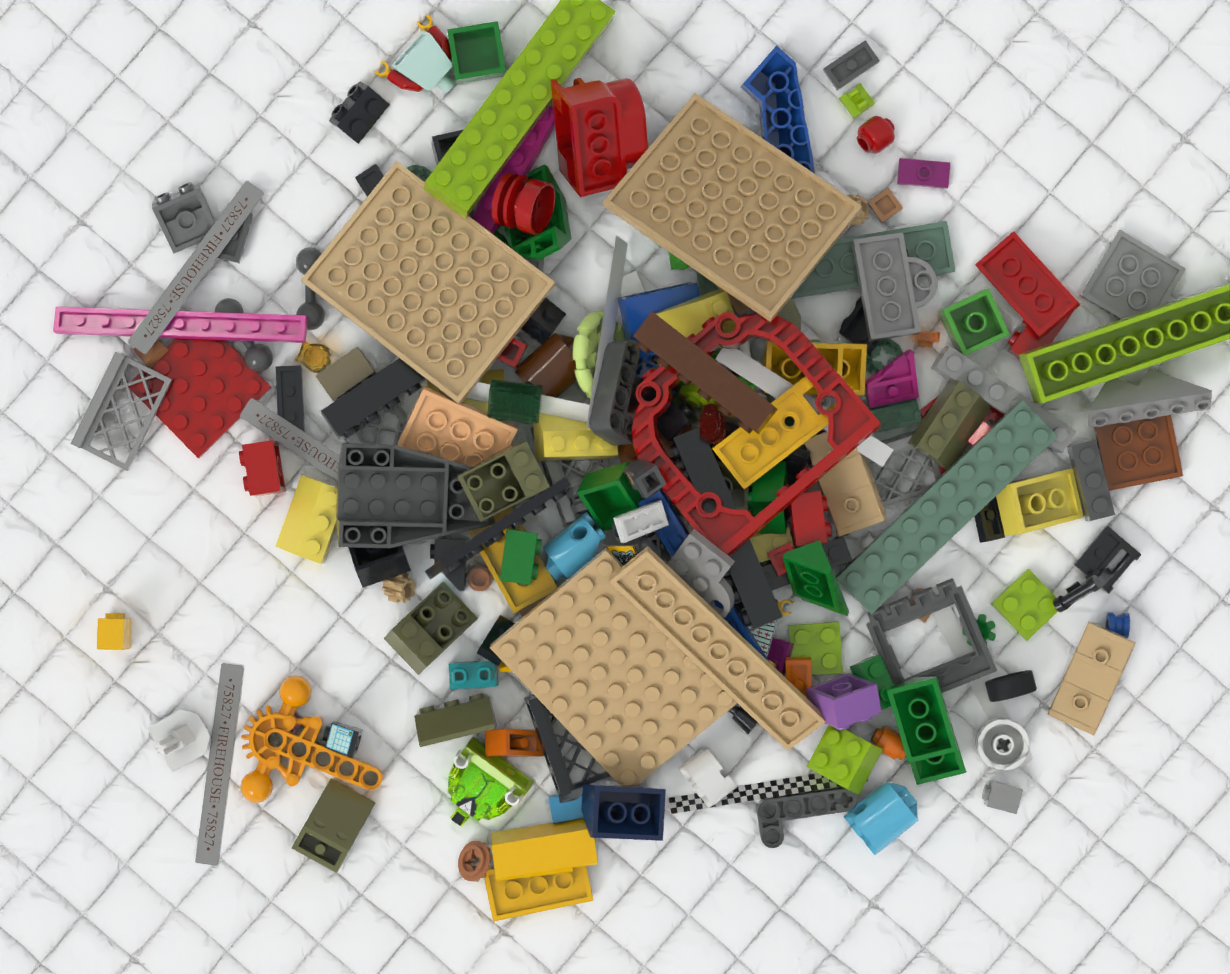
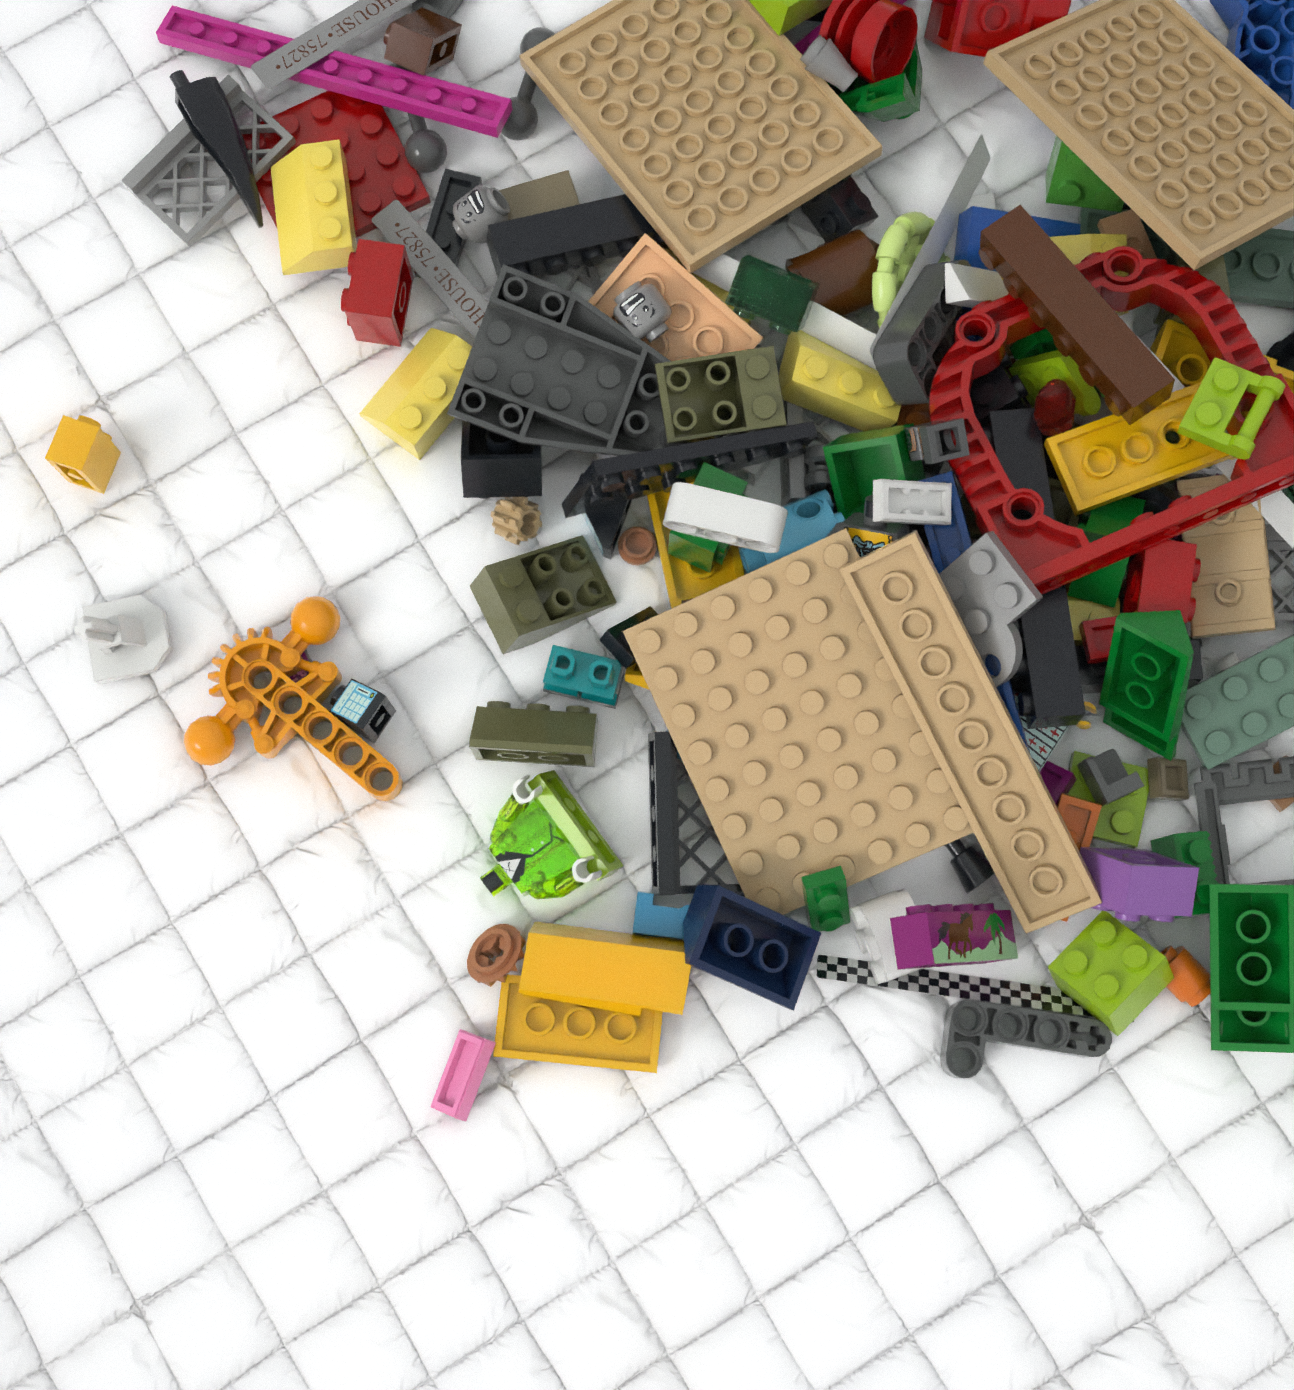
camera: 15 degrees right, 10 degrees down
(122, 392) = (216, 128): none -> black piece
(156, 352) = (281, 99): medium nougat plate -> none
(202, 425) = (313, 208): none -> light yellow slope
(219, 764) = (168, 698): light grey sticker -> none
(232, 286) = (421, 41): none -> reddish brown brick
(311, 396) = (477, 211): none -> light grey head
(314, 357) = (503, 172): clear yellow animal -> none
(333, 825) = (301, 834): olive slope -> none
(437, 439) = (642, 311): none -> light grey head
(478, 937) = (463, 1075): none -> bright pink tile
(503, 234) = (828, 63): none -> light grey cone
(512, 743) = (609, 795): orange slope -> none
(513, 353) = (782, 240): red brick -> none
(530, 564) = (725, 517): none -> white beam
(636, 361) = (971, 285): none -> white slope
(663, 768) = (826, 899): none -> green plate
(744, 770) = (953, 936): none -> magenta brick
(806, 407) = (1218, 401): none -> lime plate
(812, 638) = (1108, 777): none -> dark grey panel
(850, 626) = (1168, 779): none -> dark tan tile
(883, 815) = (1146, 1082): medium azure cylinder -> none

